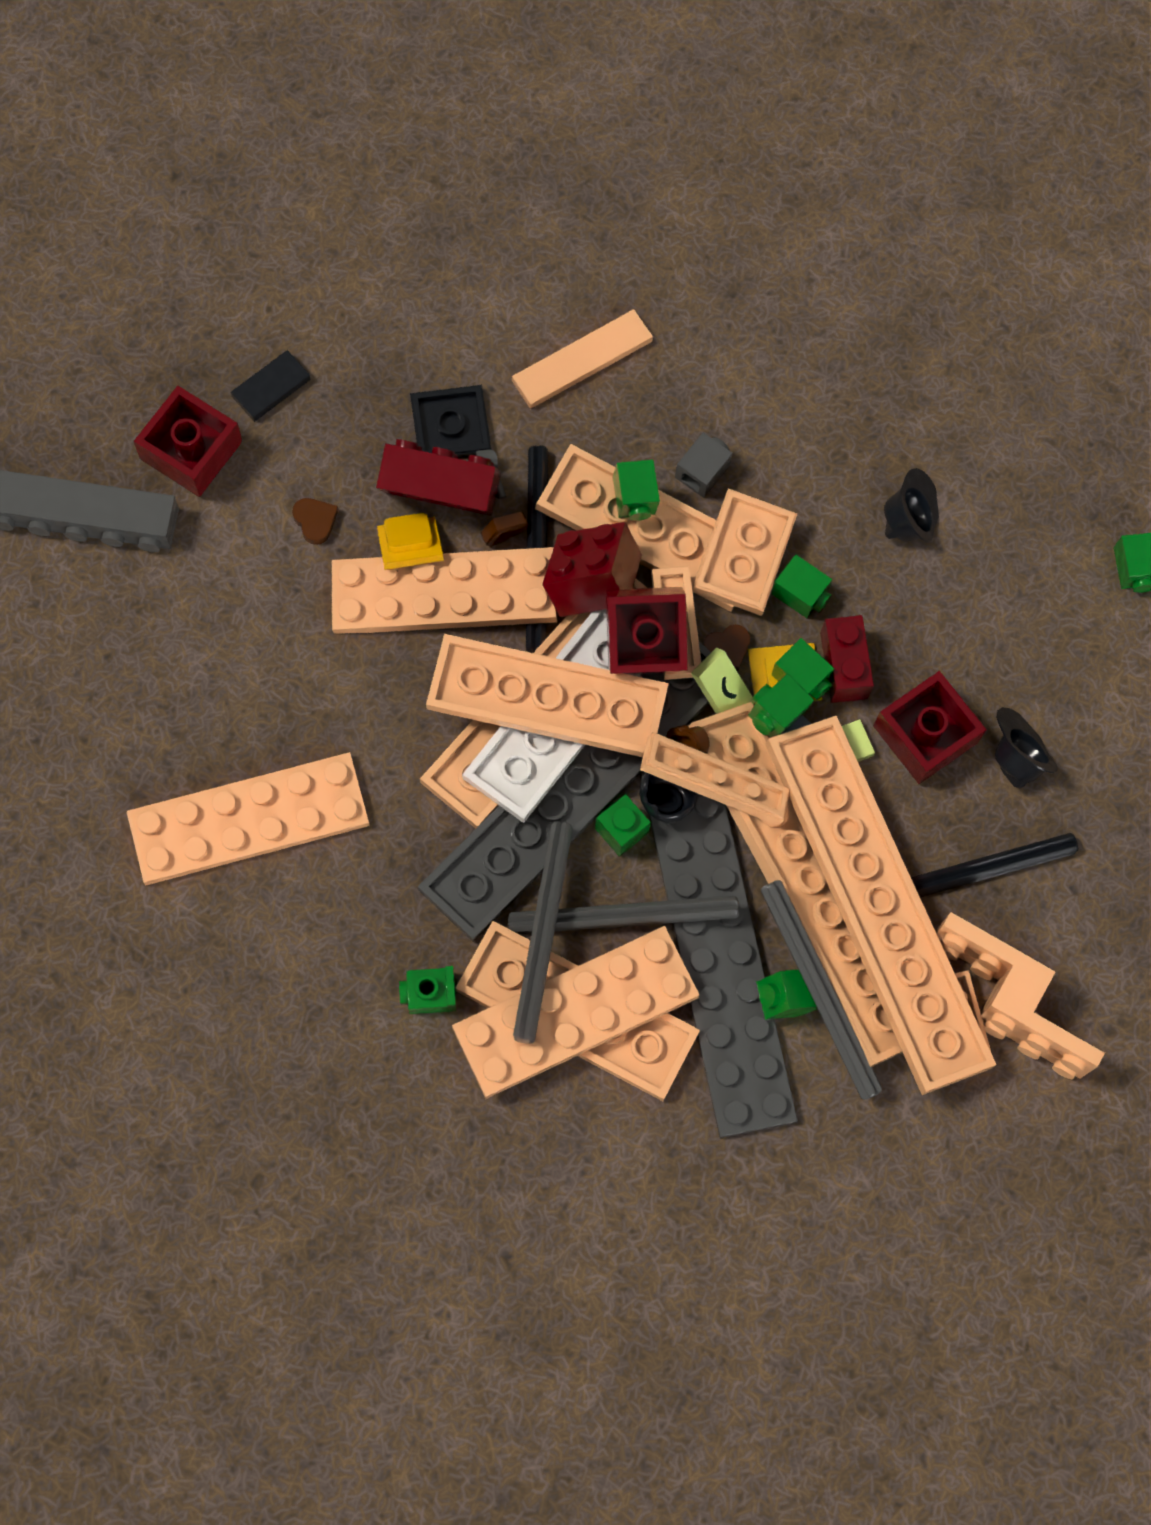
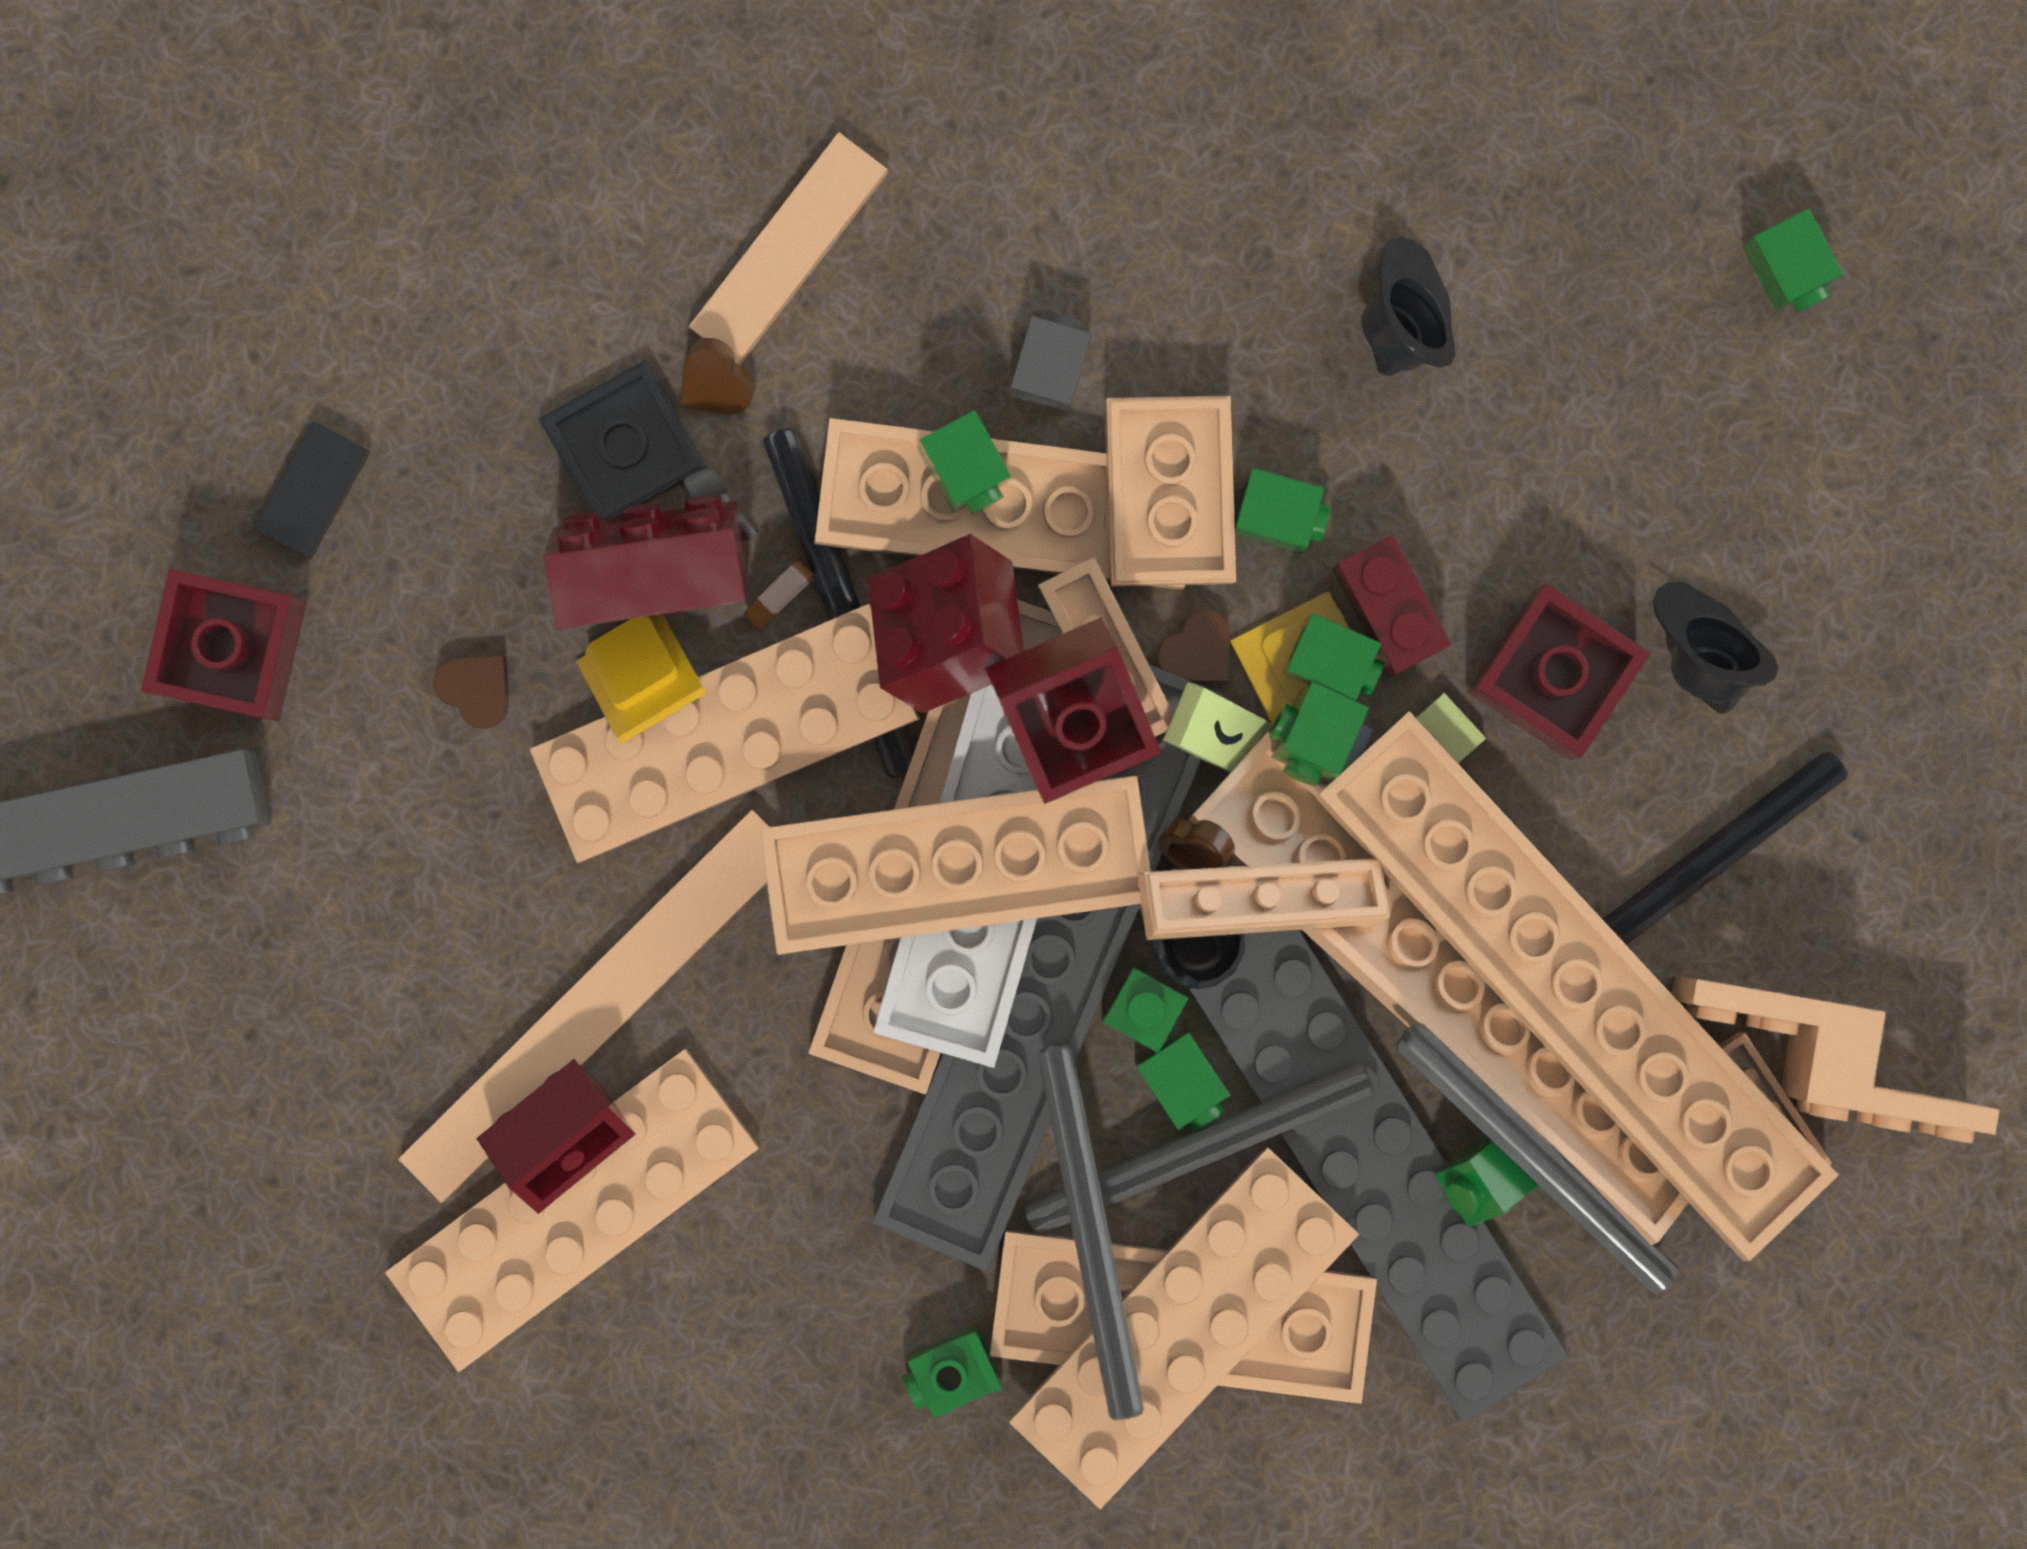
camera: 15 degrees left, 15 degrees up
(258, 765) = (555, 1136): none -> dark red brick
(302, 715) = (596, 1004): none -> light nougat tile
(515, 407) = (714, 379): none -> reddish brown tile
(629, 874) = (1184, 1082): none -> green brick

